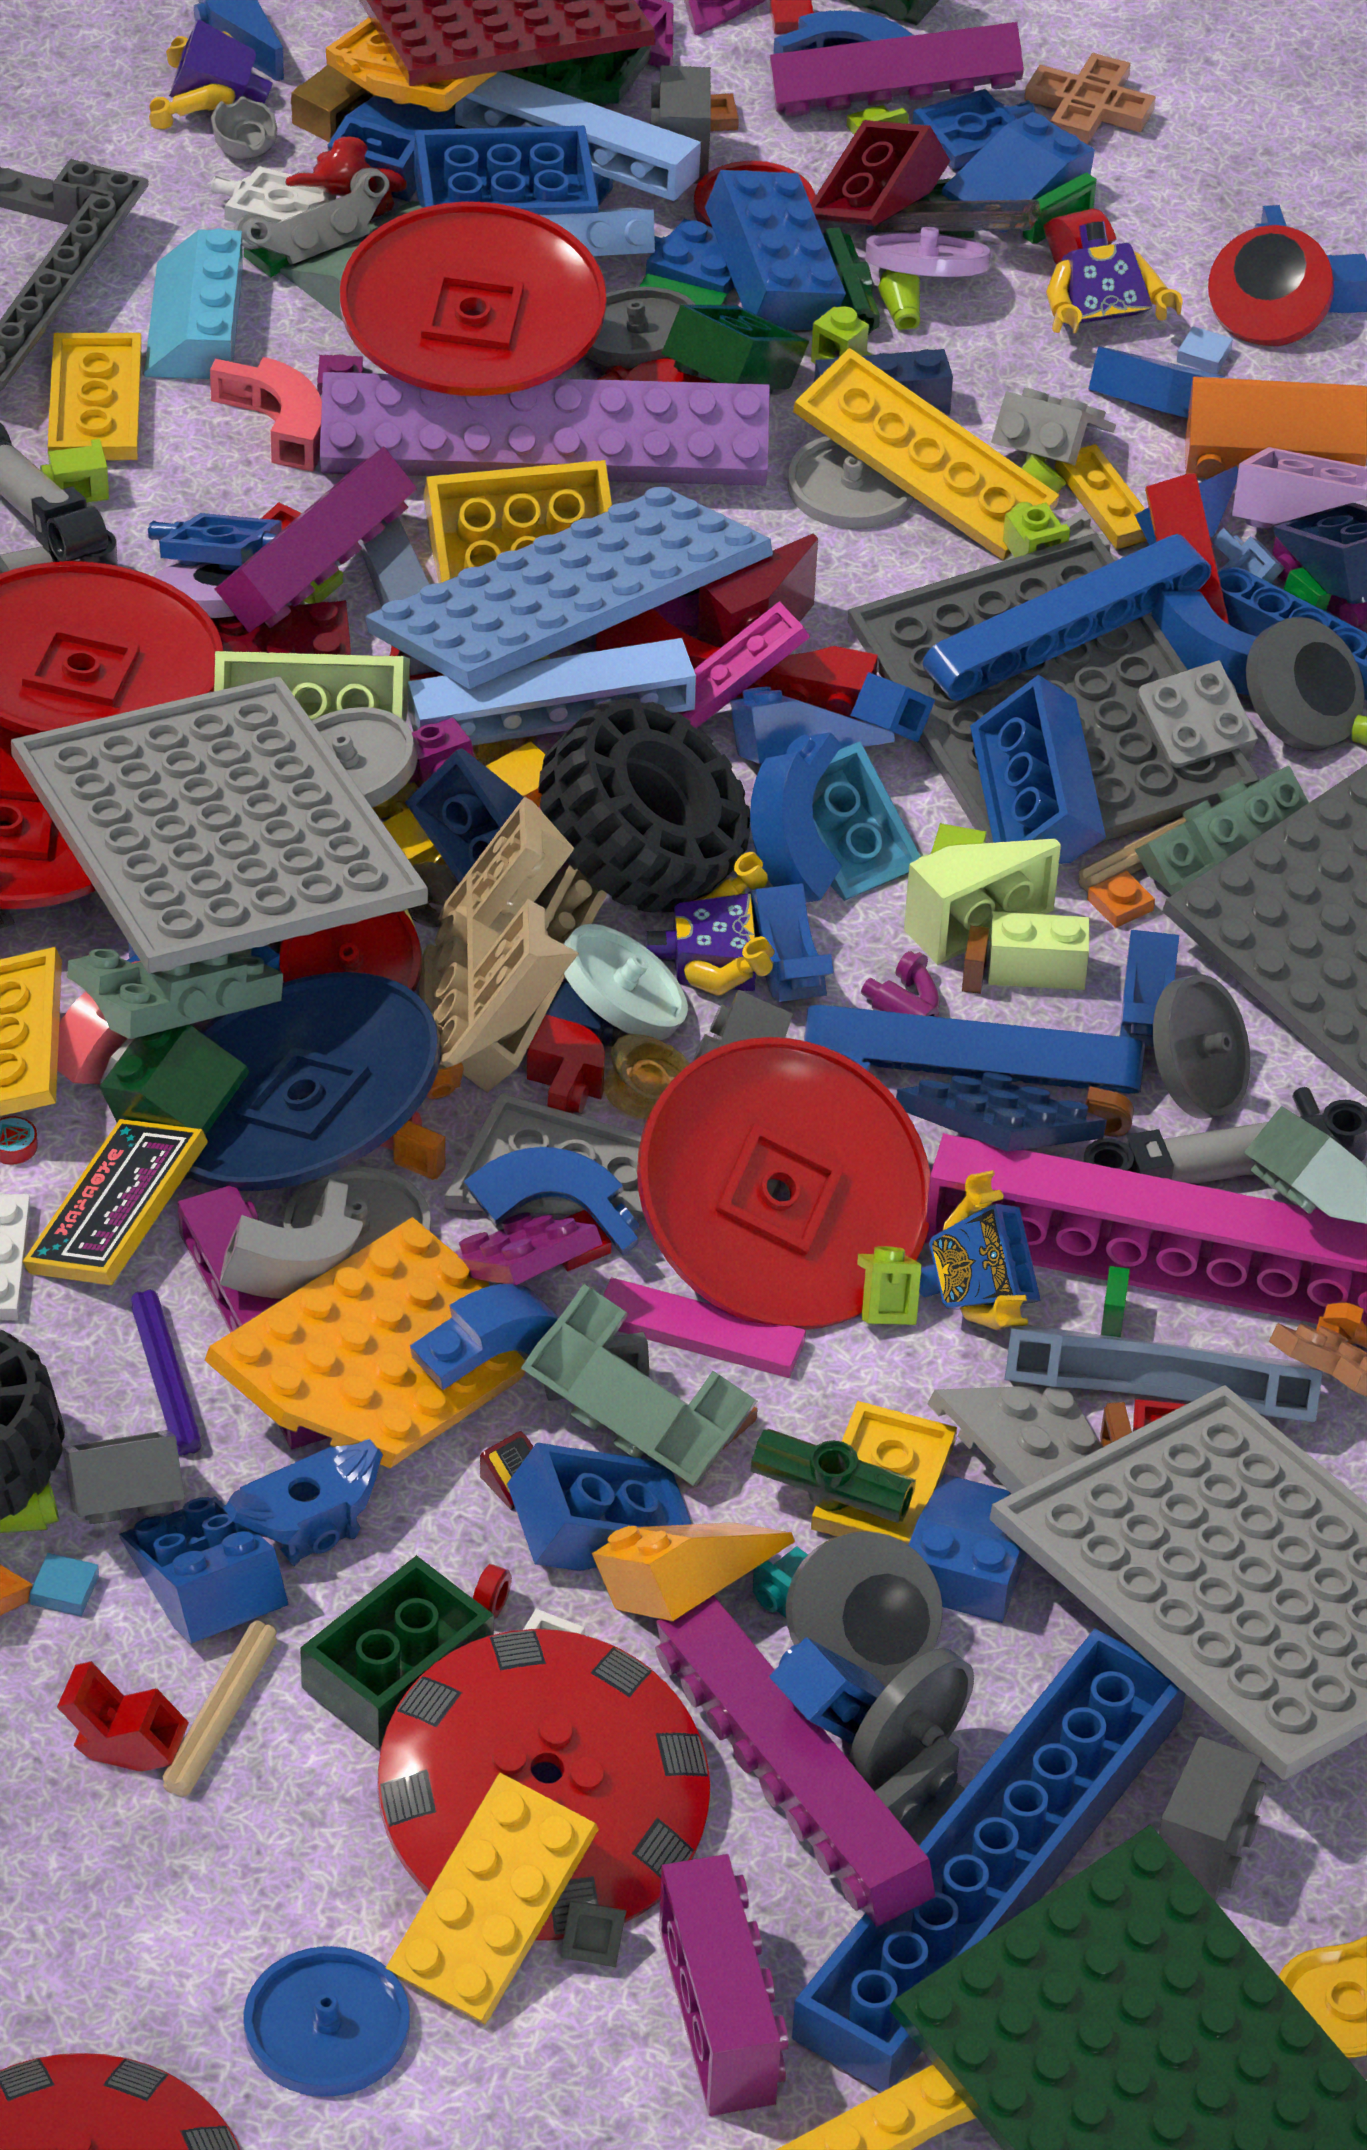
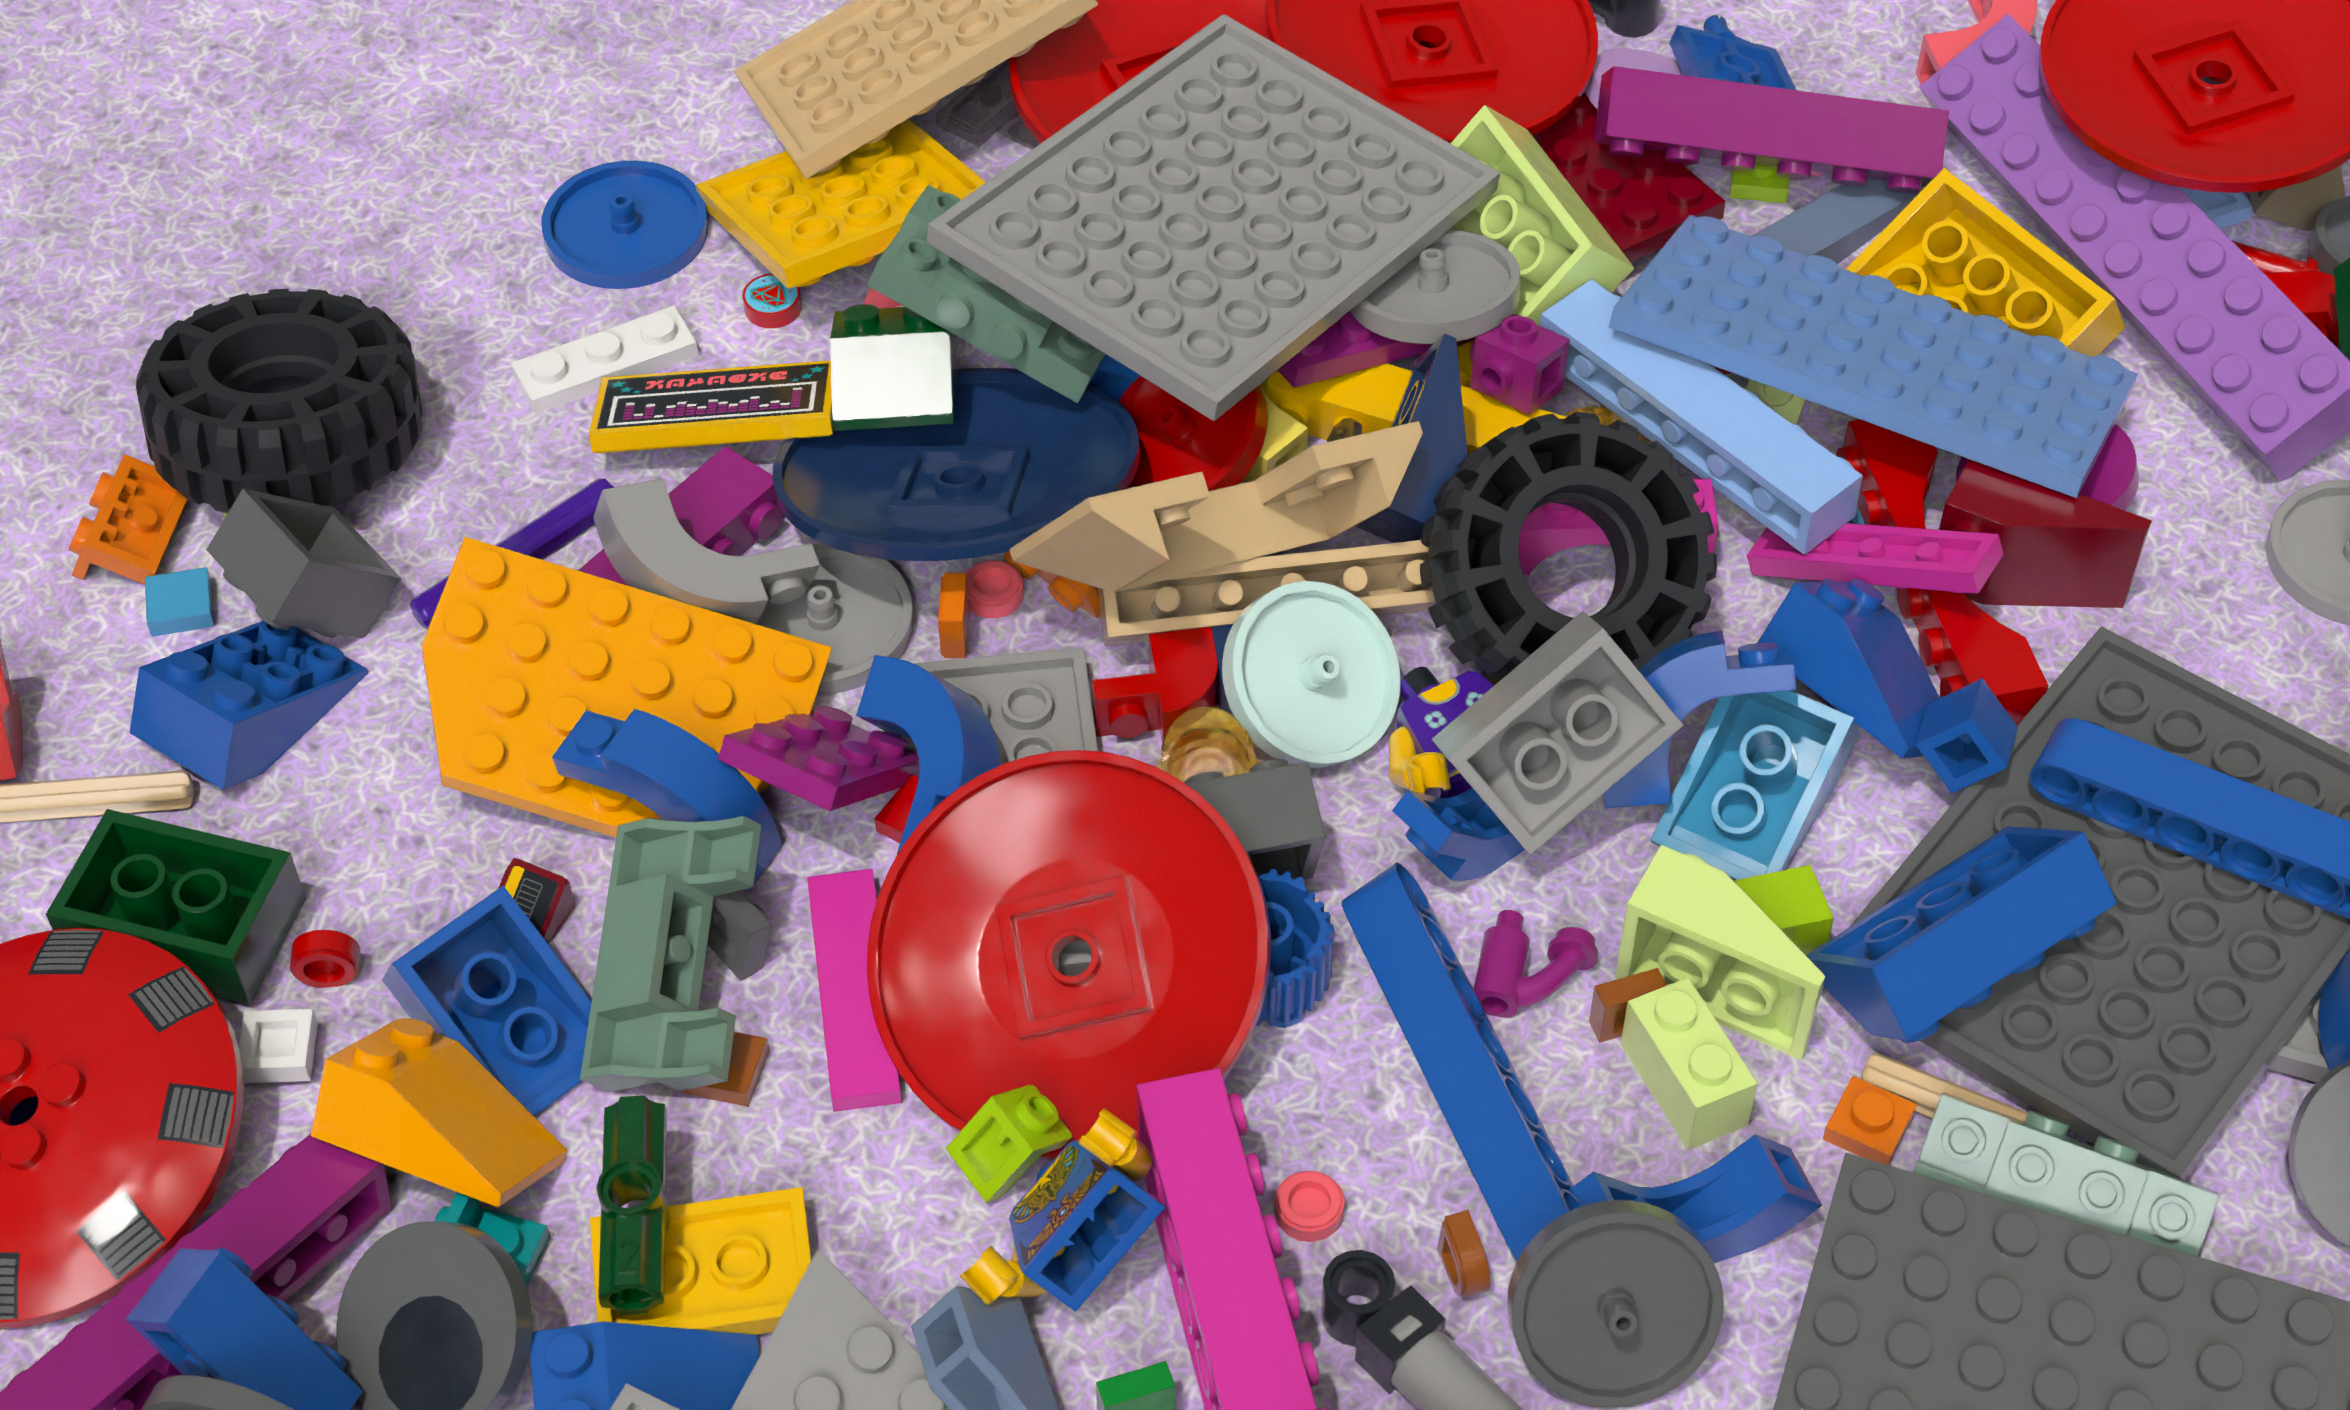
camera: 65 degrees right, 5 degrees up
(277, 1506) = (306, 711): blue piece -> none
(785, 869) = (1557, 732): none -> light grey slope
(1001, 1112) = (1336, 1129): dark blue plate -> none
(1197, 715) = (2222, 1057): light grey bracket -> none

